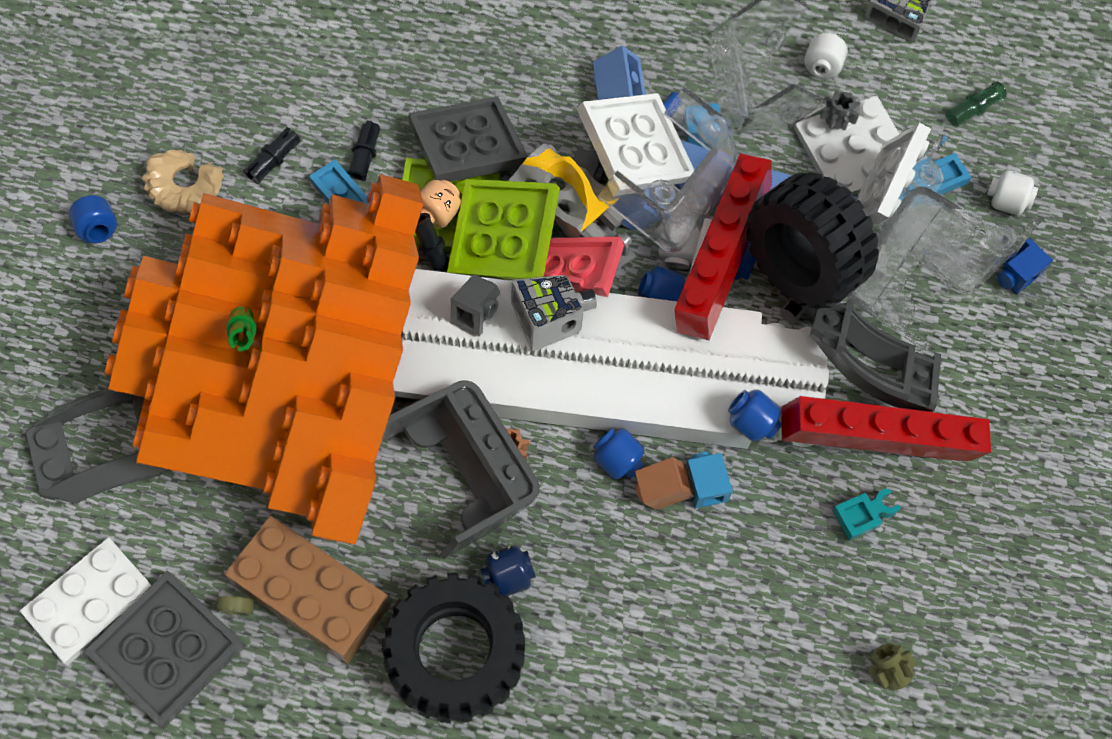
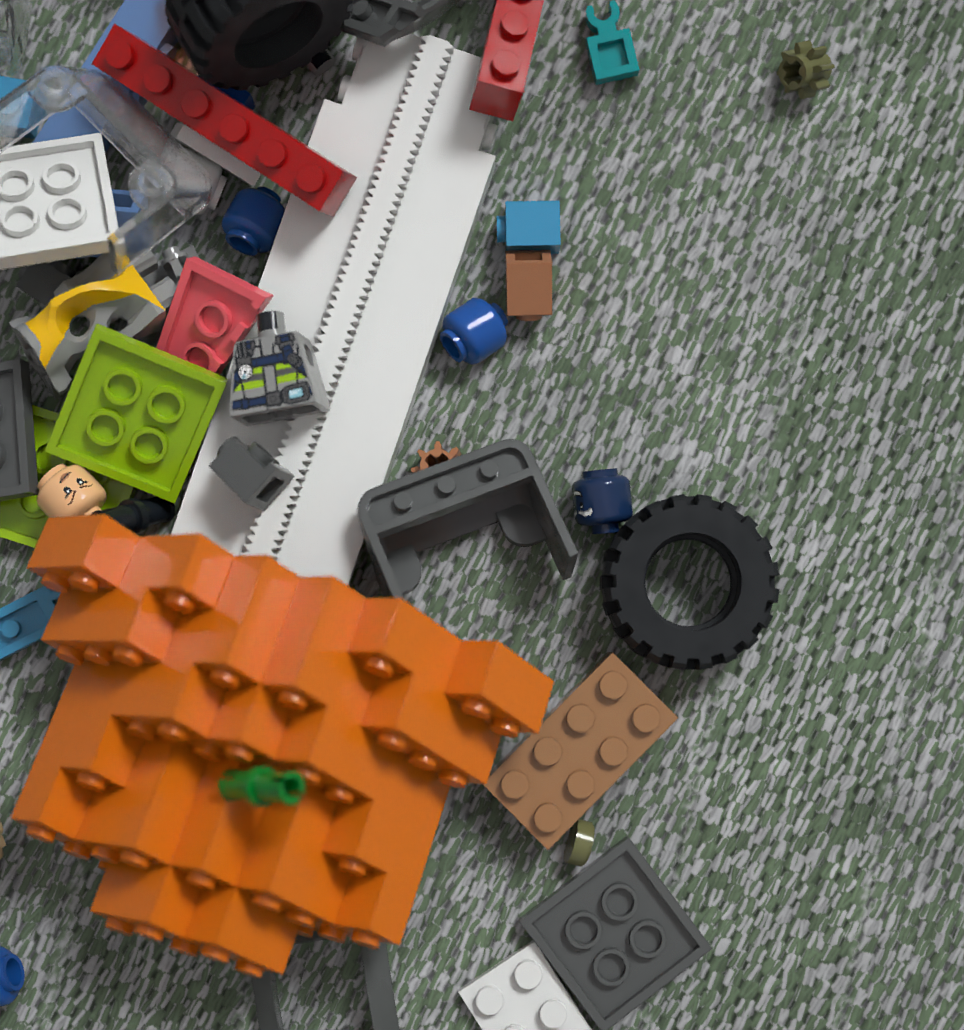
camera: 75 degrees left, 20 degrees up
(755, 415) = (476, 145): blue head -> none

